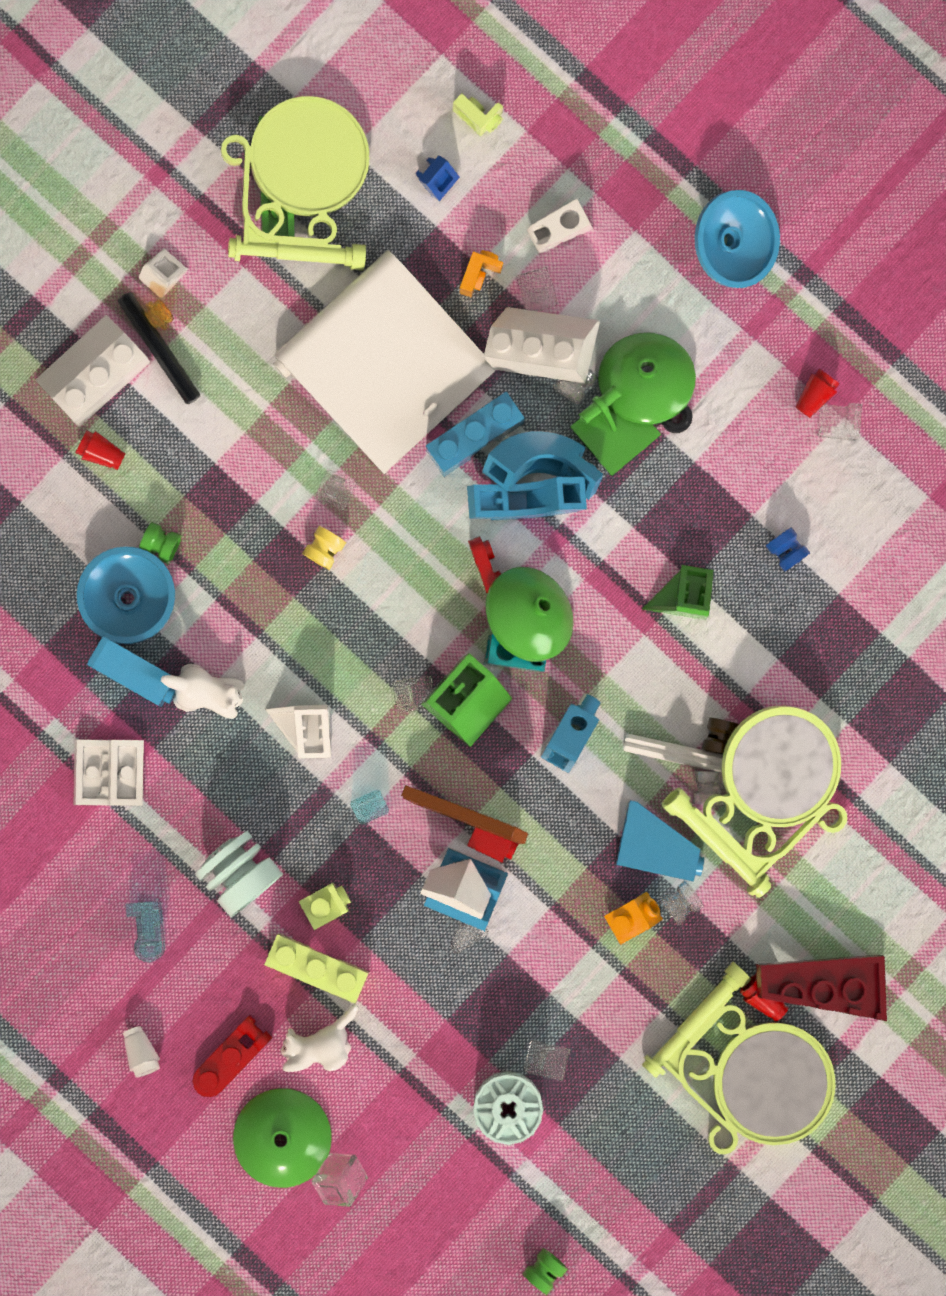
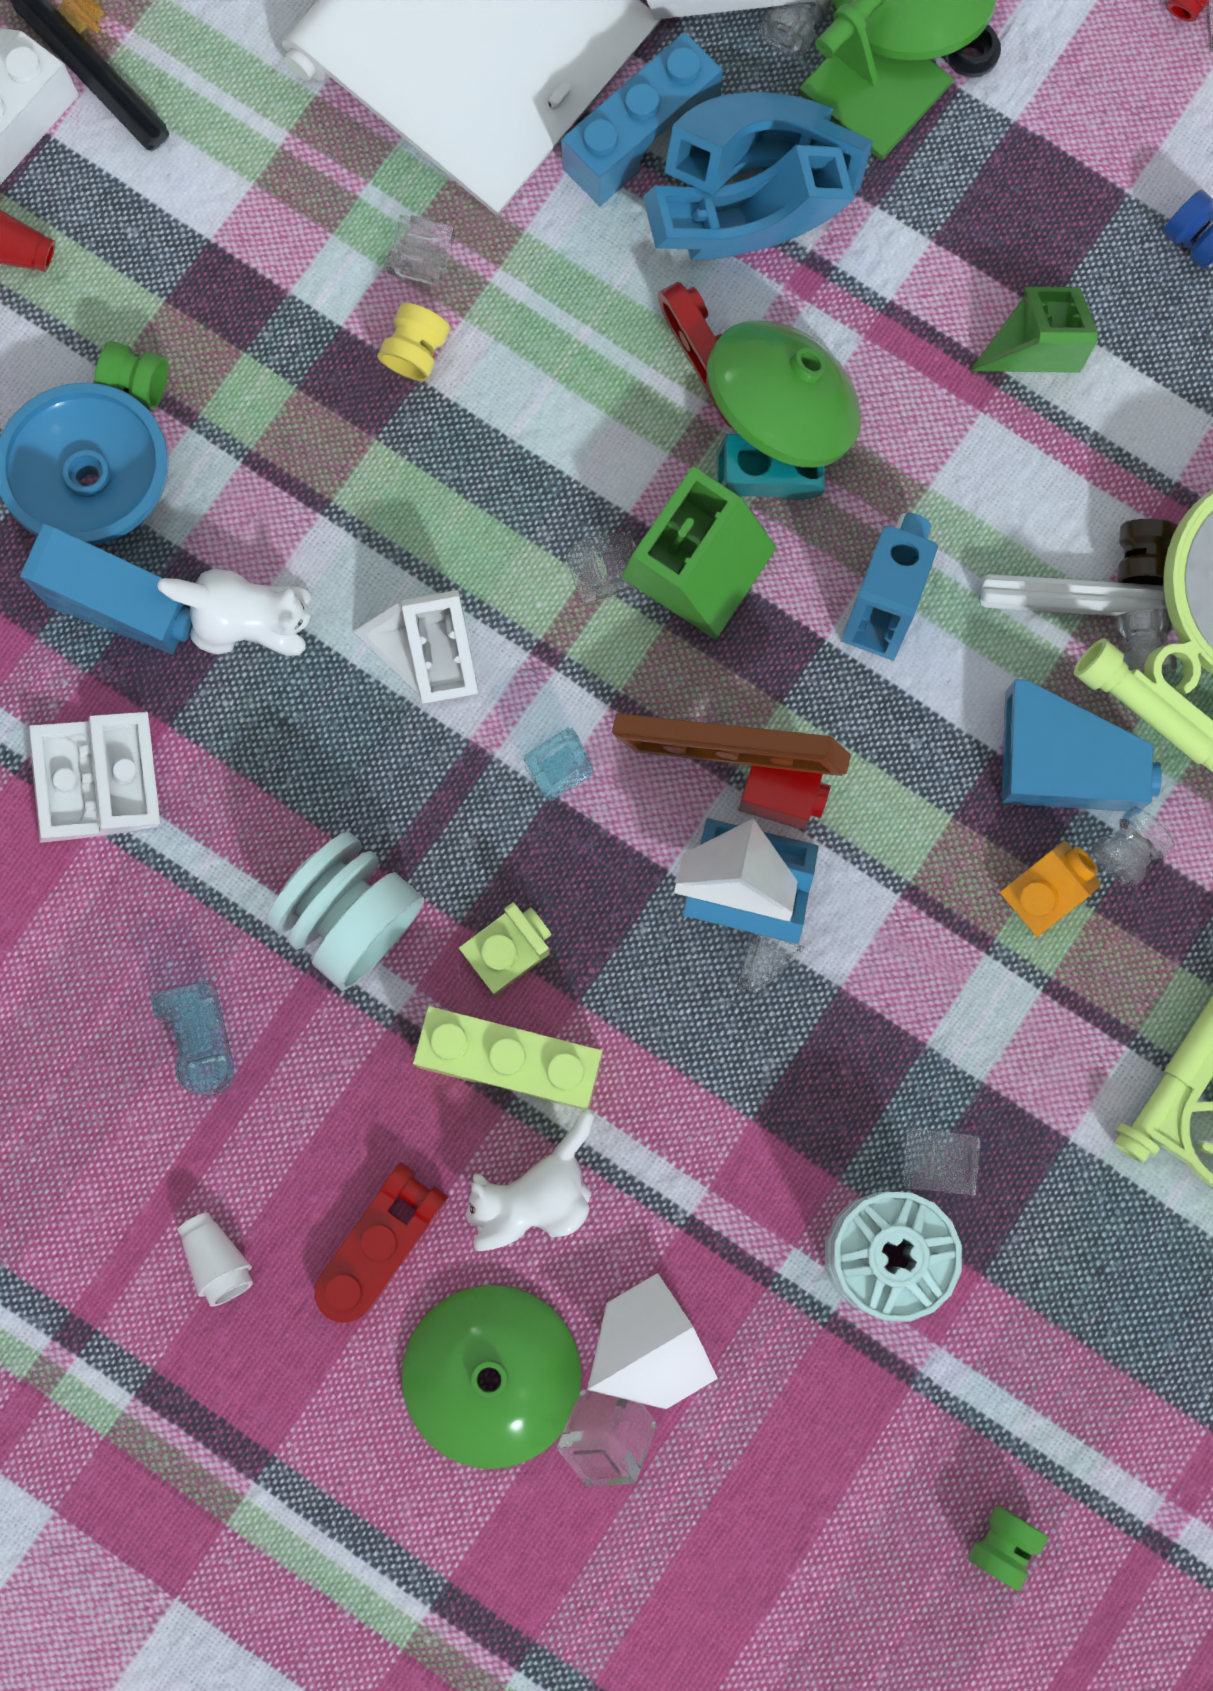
camera: 10 degrees left, 5 degrees down
(369, 1136) = (649, 1349): none -> white slope

